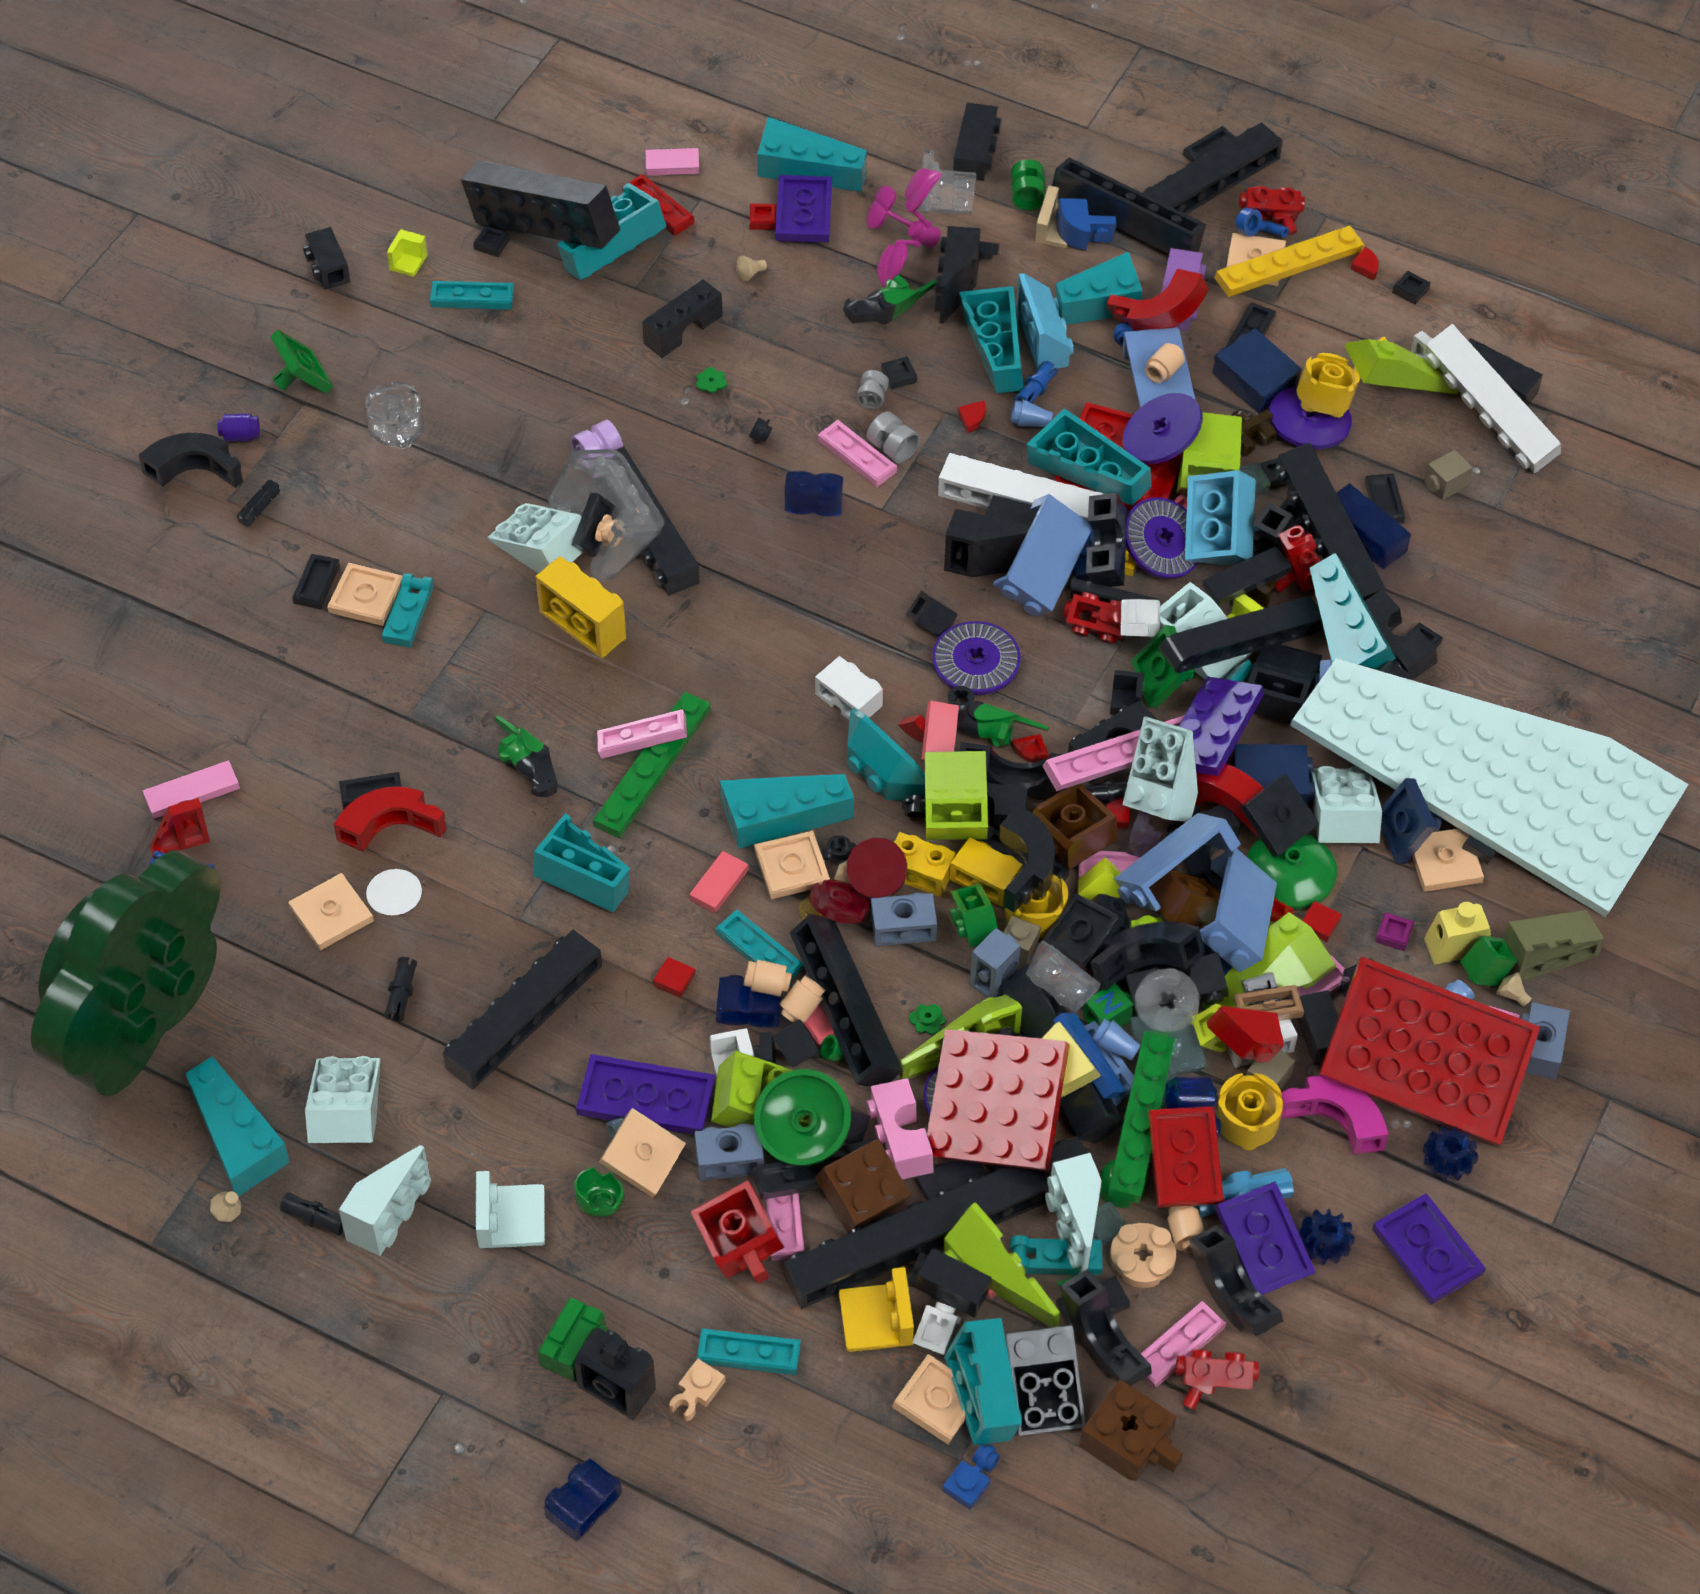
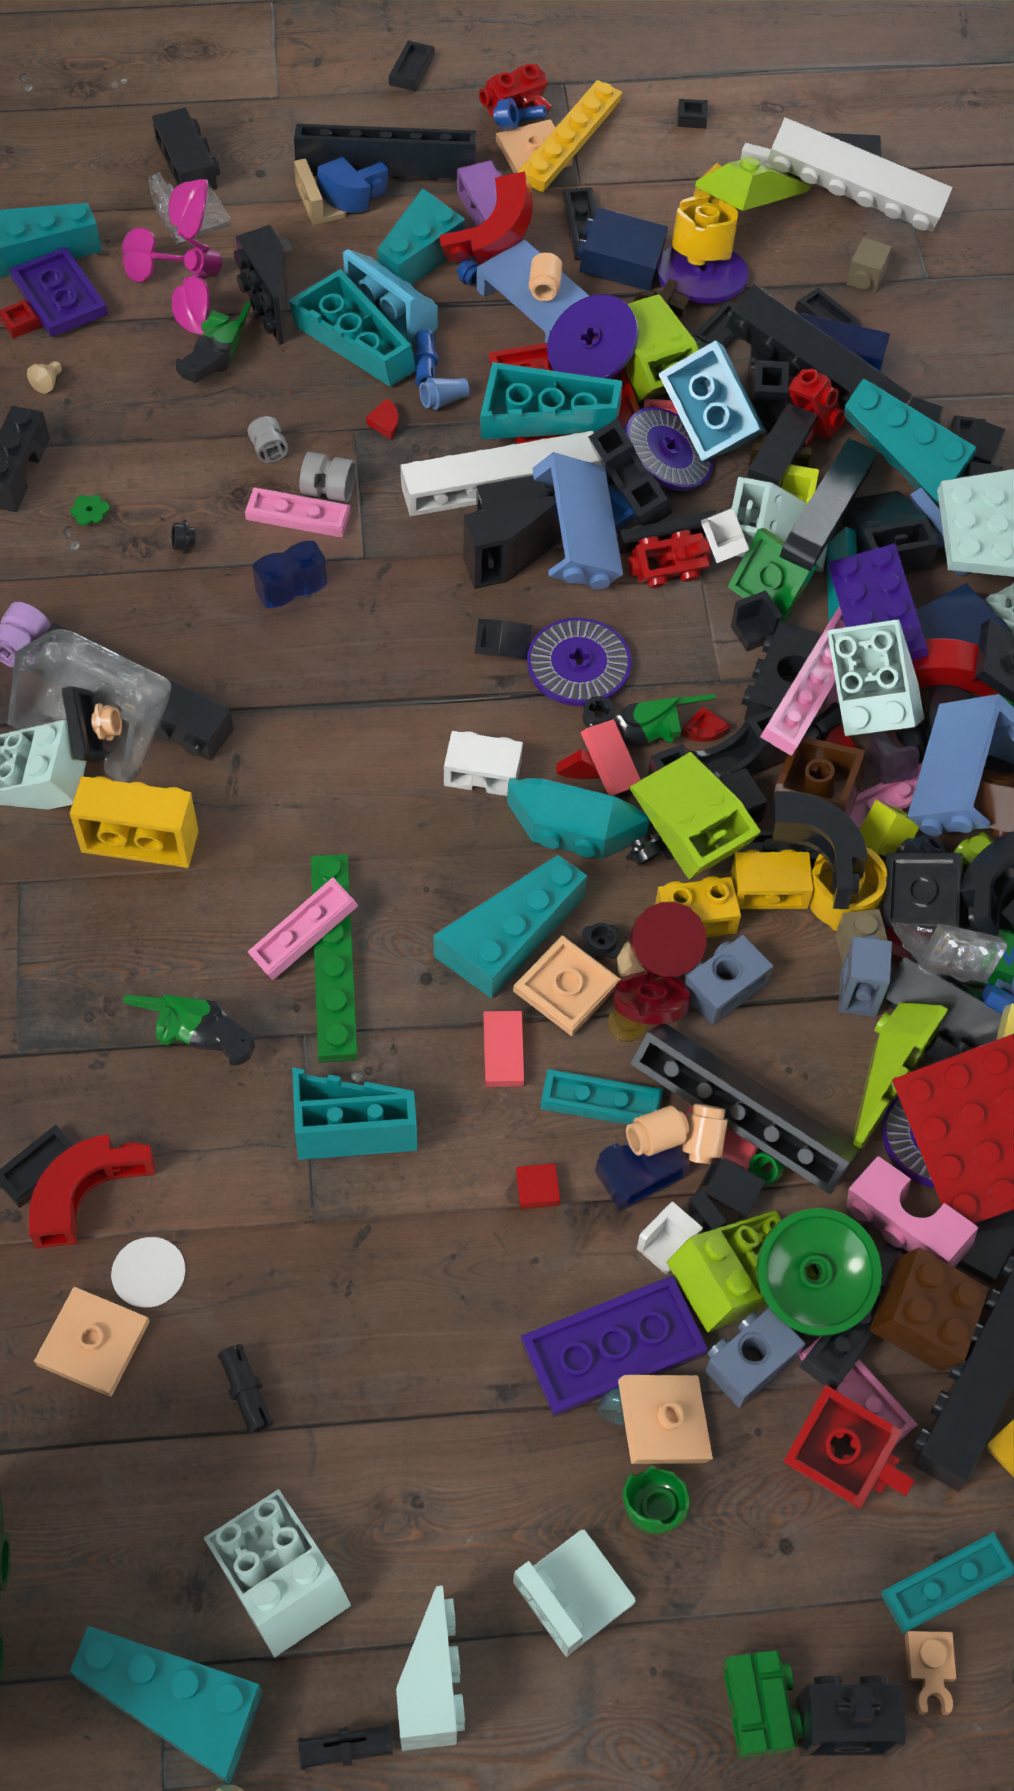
camera: 35 degrees left, 5 degrees up
(522, 1009) = (403, 1330): black brick -> none
(899, 372) = (280, 408): black tile -> none
(931, 1024) = (828, 1083): green plant -> none
(972, 914) = (804, 934): green brick -> none
(1028, 184) = (270, 170): green wheel -> none
(1218, 170) = (439, 77): black brick -> none
(1366, 264) = (637, 109): red tile -> none

